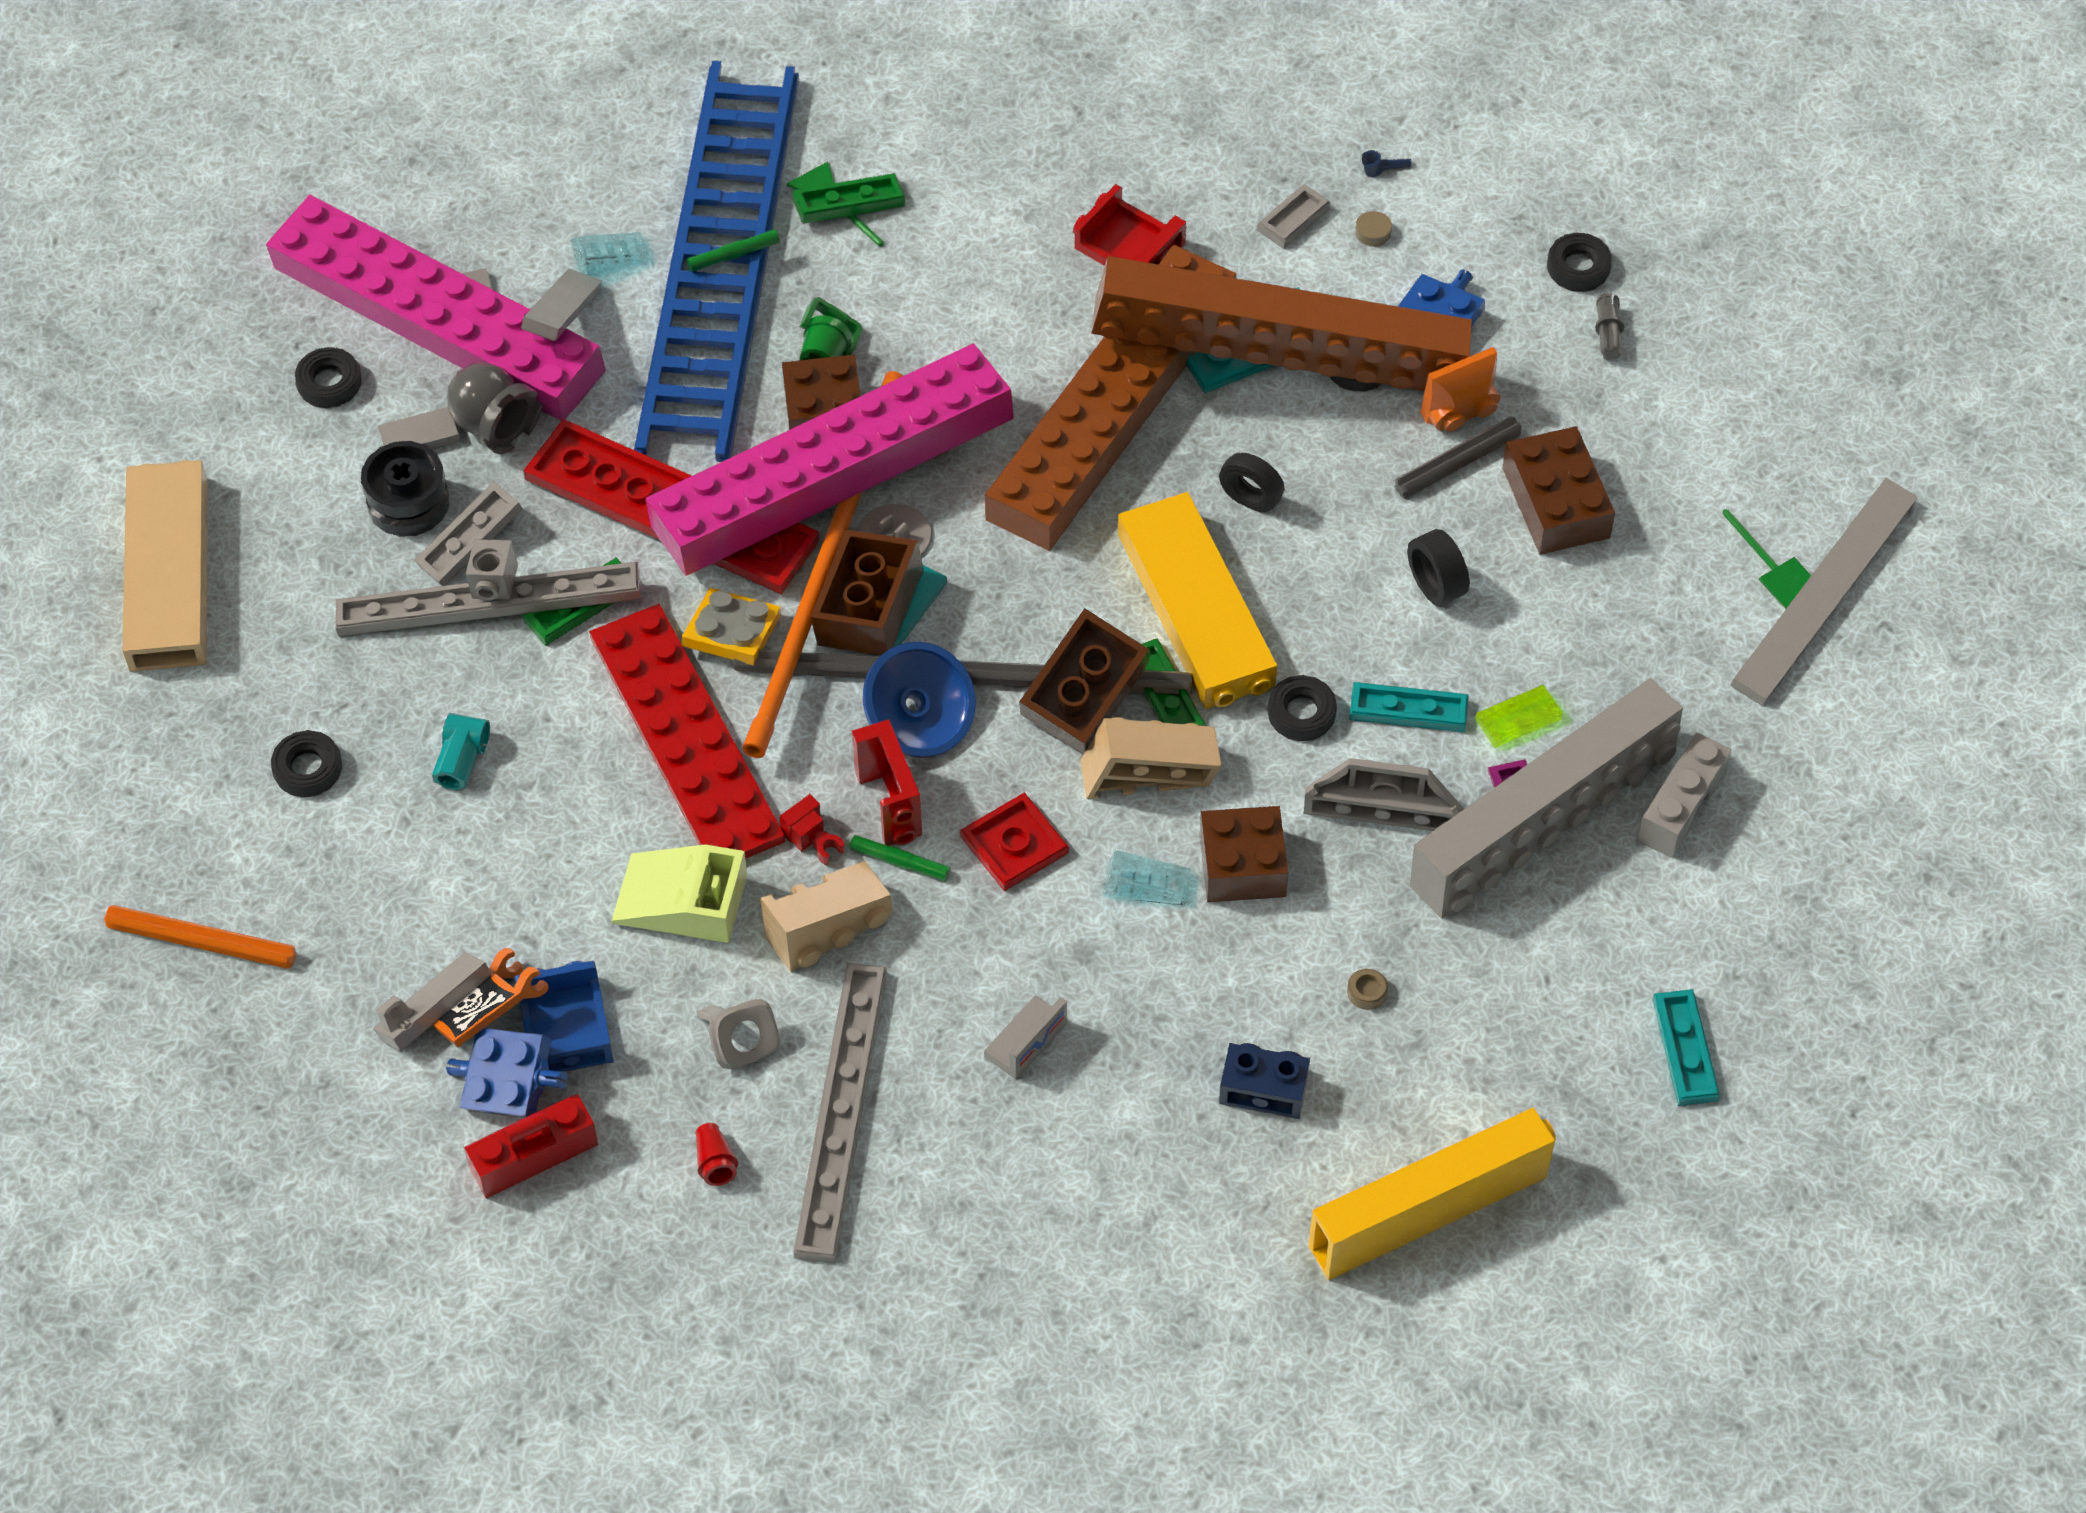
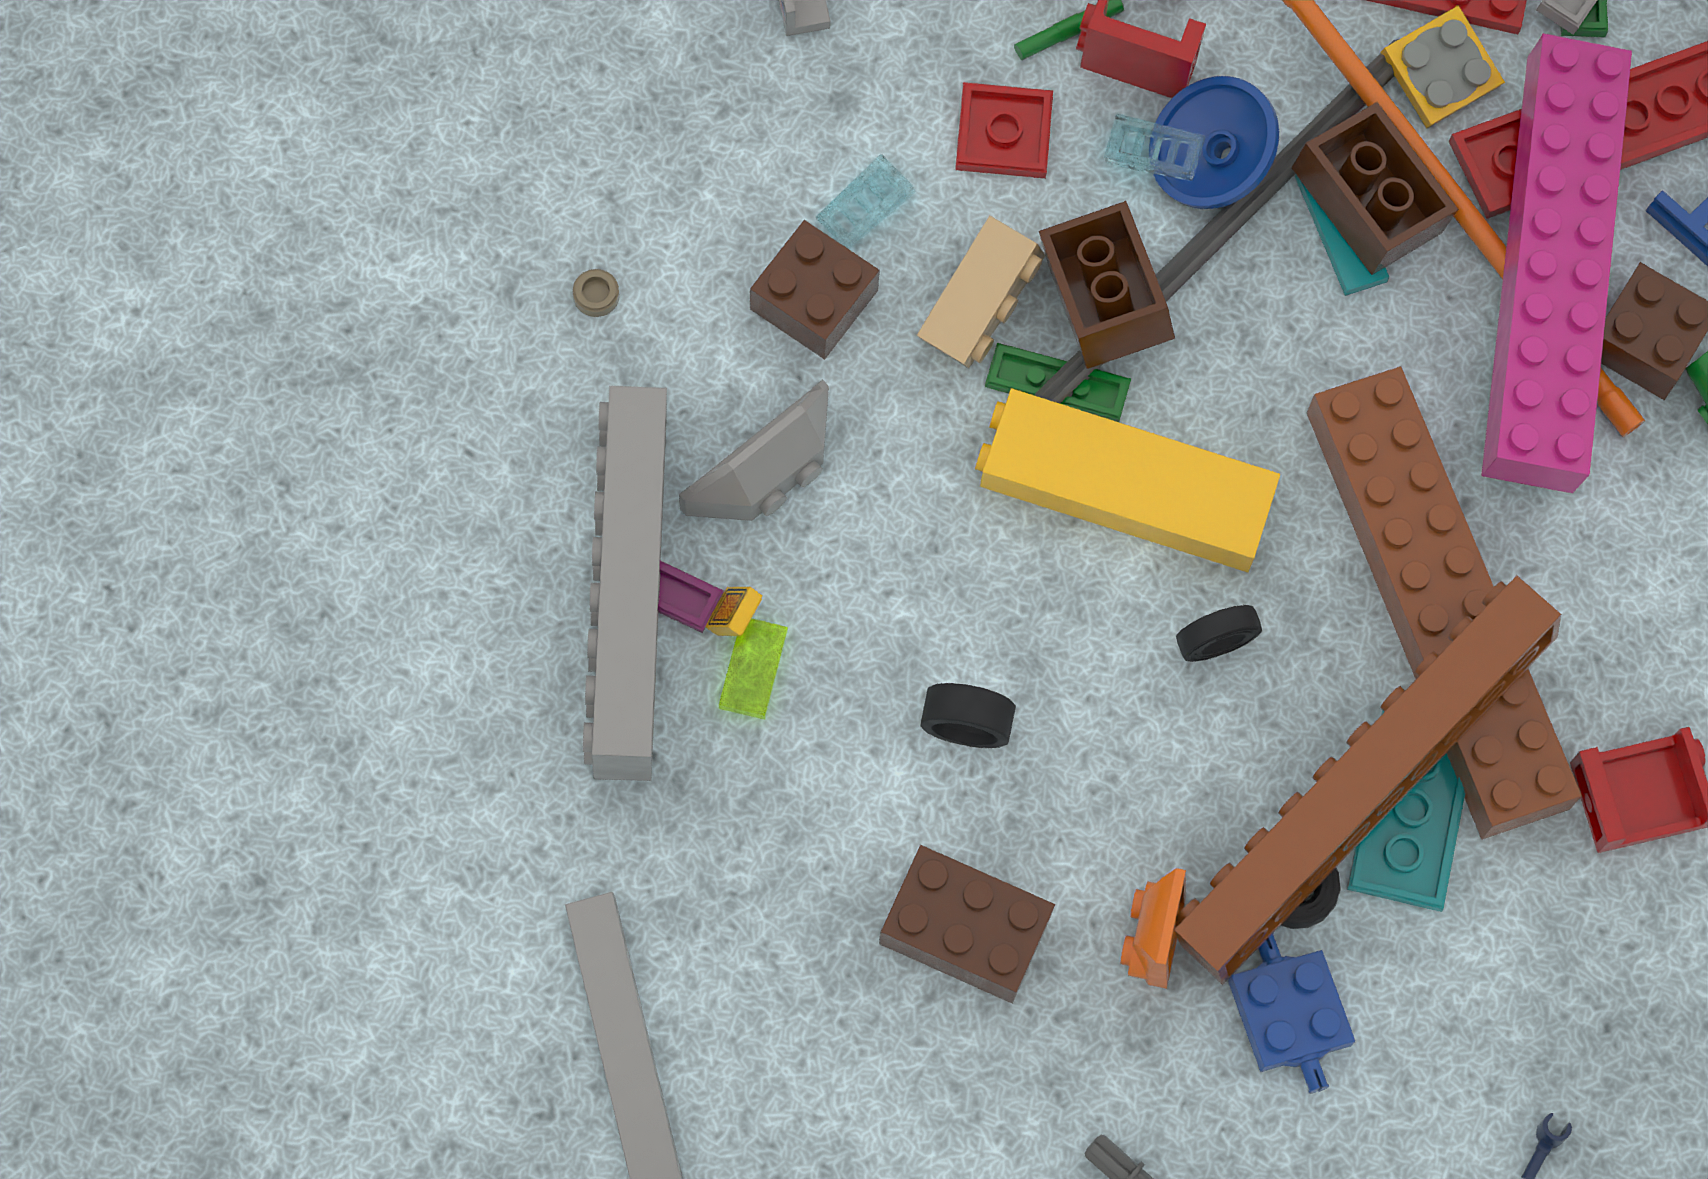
camera: 125 degrees right, 15 degrees up
(900, 522) = (1441, 291): light grey piece -> none
(958, 760) = (1117, 141): none -> clear light blue slope
(1264, 1080) = (581, 127): dark blue brick -> none
(1293, 216) = (1545, 989): light grey tile -> none
(1302, 687) = (934, 453): black tyre -> none
(1373, 228) = (1462, 1055): dark tan tile -> none
(1409, 707) = (849, 578): teal tile -> none
(1431, 1193) = (346, 151): yellow brick -> none
(1457, 457) = (1095, 878): dark grey axle -> none
(1499, 743) = (734, 611): none -> yellow tile
(1680, 796) = (530, 722): light grey arch -> none
(1686, 1047) = (297, 503): teal tile -> none
(1783, 580) = (682, 1068): green piece -> none

